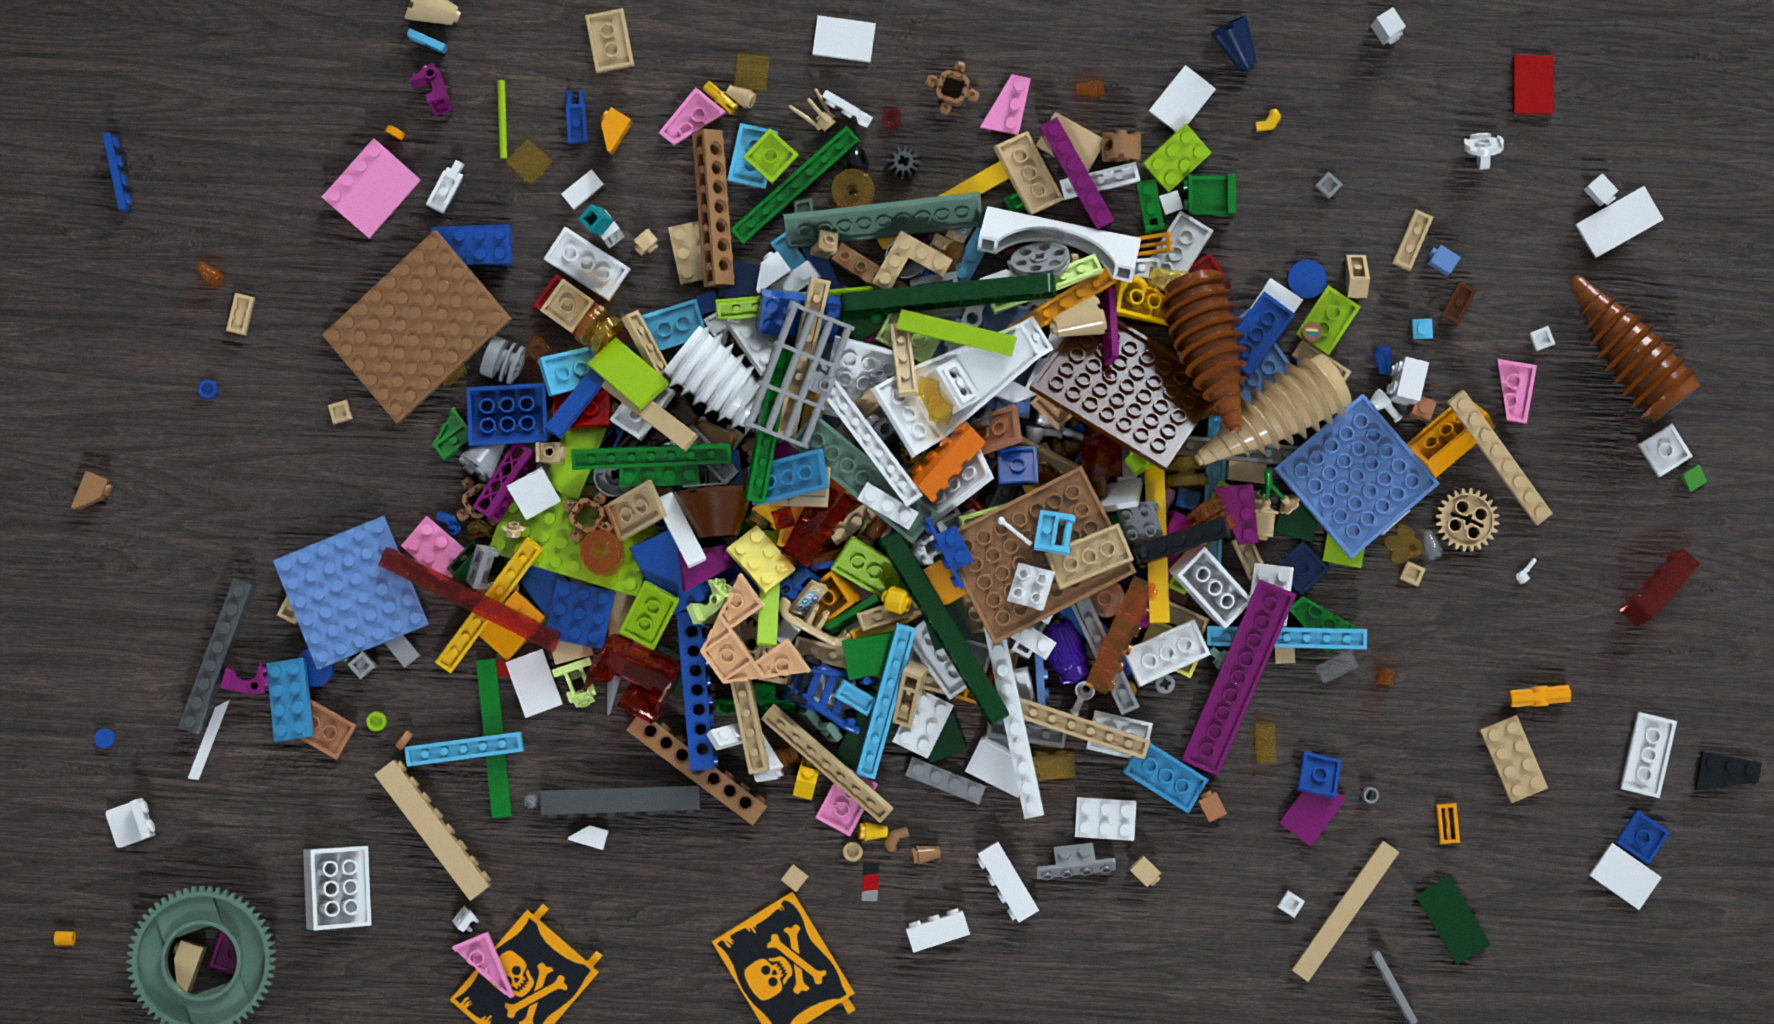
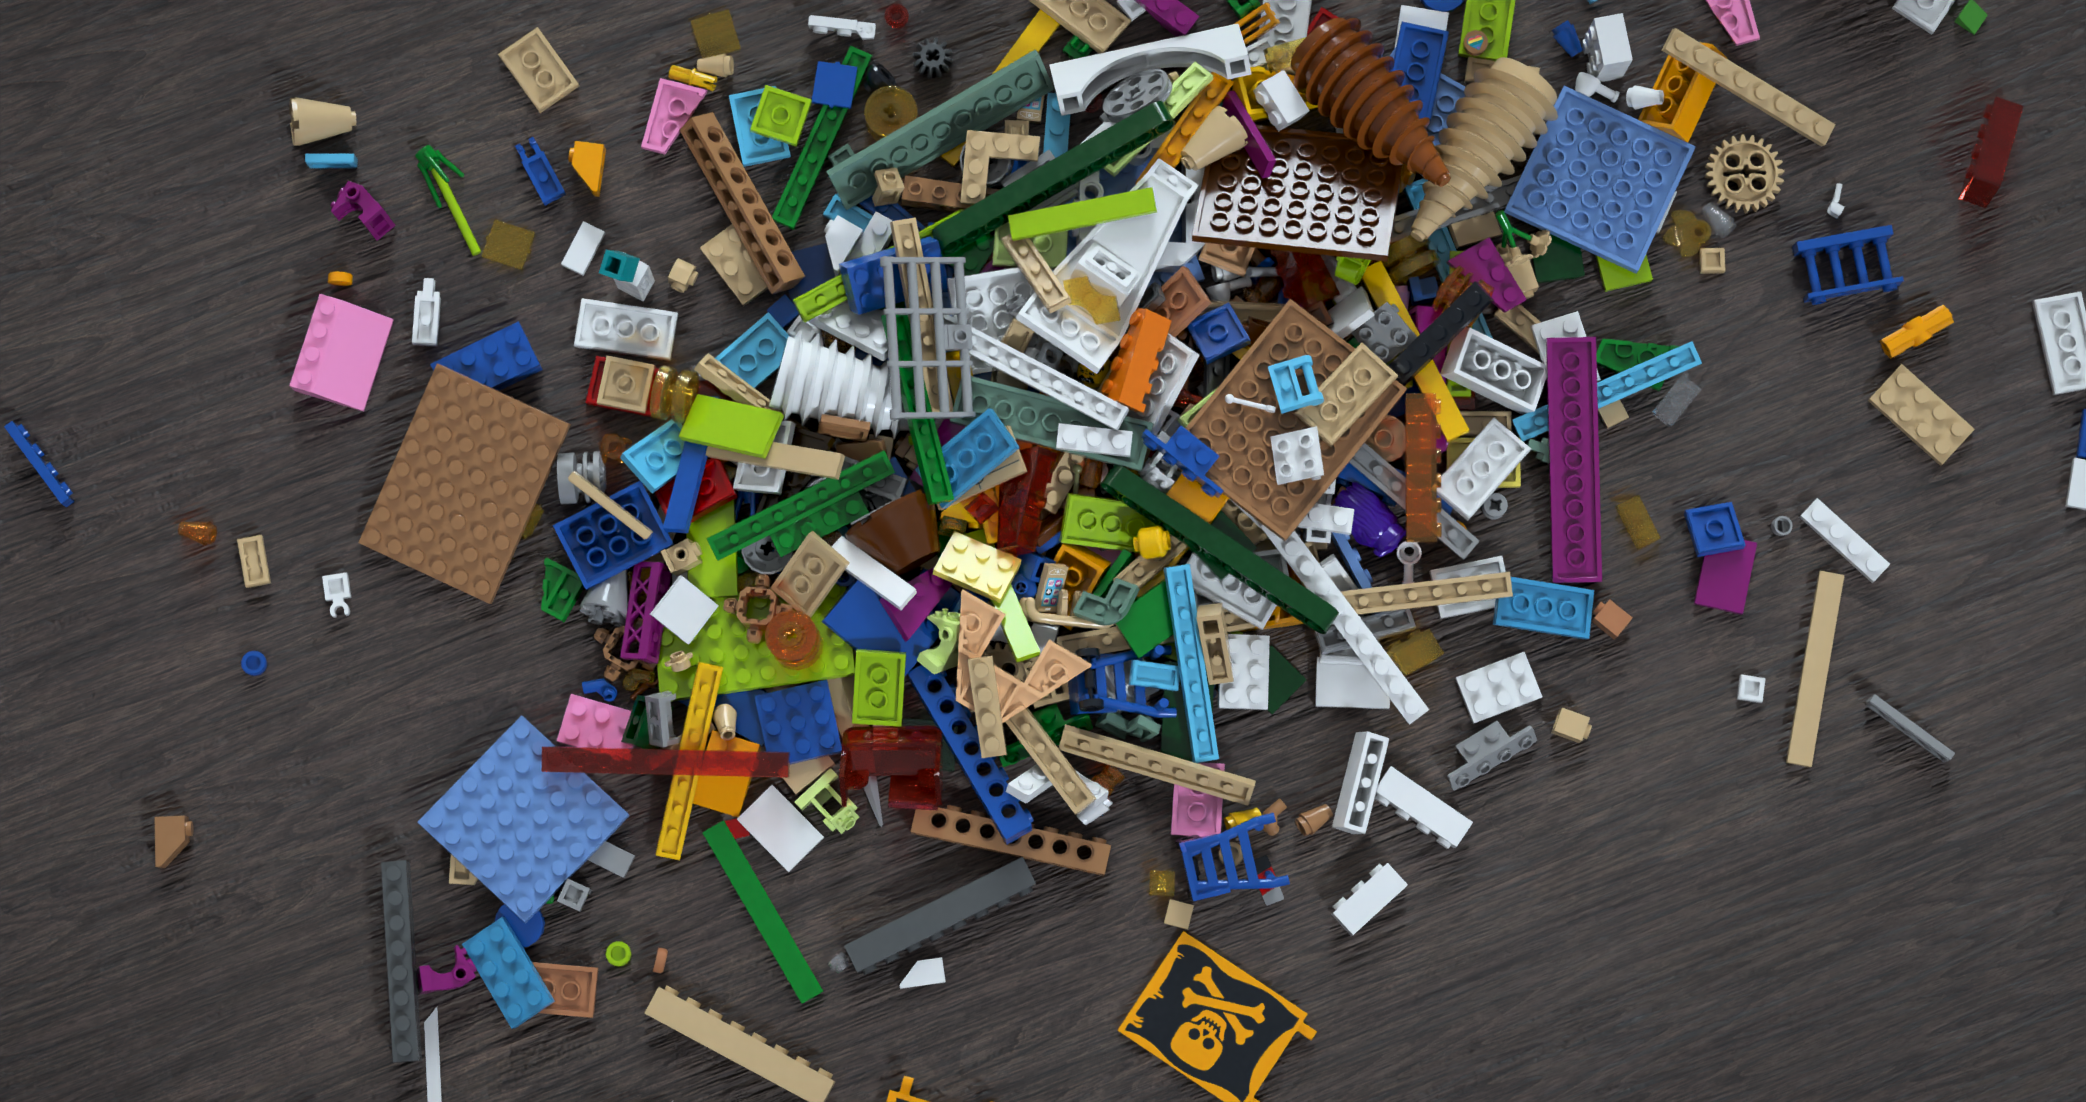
camera: 30 degrees left, 5 degrees down
(291, 362) = (336, 590): none -> white plate
(340, 412) = (418, 621): tan tile -> none
(464, 749) = (734, 938): medium azure plate -> none
(499, 73) = (429, 159): none -> green plant
(513, 393) = (610, 505): none -> tan tile
(527, 588) = (725, 721): none -> tan cone
(709, 412) = (843, 427): none -> medium nougat tile
(720, 666) = (987, 706): none -> tan plate
(792, 849) = (1161, 883): none -> clear yellow tile
(806, 780) = (1141, 795): yellow slope -> none
(821, 150) = (834, 84): none -> blue piece
(824, 120) = (822, 48): tan plant -> none
(825, 834) = (1194, 845): none -> blue hand
(844, 635) = (1107, 610): none -> sand green plate
(945, 780) = (1298, 726): light grey plate -> none
(955, 251) = (1038, 127): clear orange animal -> none
(970, 843) = (1360, 782): none -> white brick
(1145, 311) = (1280, 100): none -> white brick
(1306, 565) = (1592, 305): dark blue tile -> none
(1386, 676) = (1737, 386): clear orange wheel -> none
(1412, 826) = (1844, 540): none -> white plate
(1417, 428) = (1643, 97): none -> white cone
(1423, 409) = (1638, 73): nougat brick -> none
(1447, 823) = (1871, 519): light orange tile -> none
(1452, 920) = (1939, 624): dark green tile -> none
(1506, 604) = (1832, 246): none -> blue fence

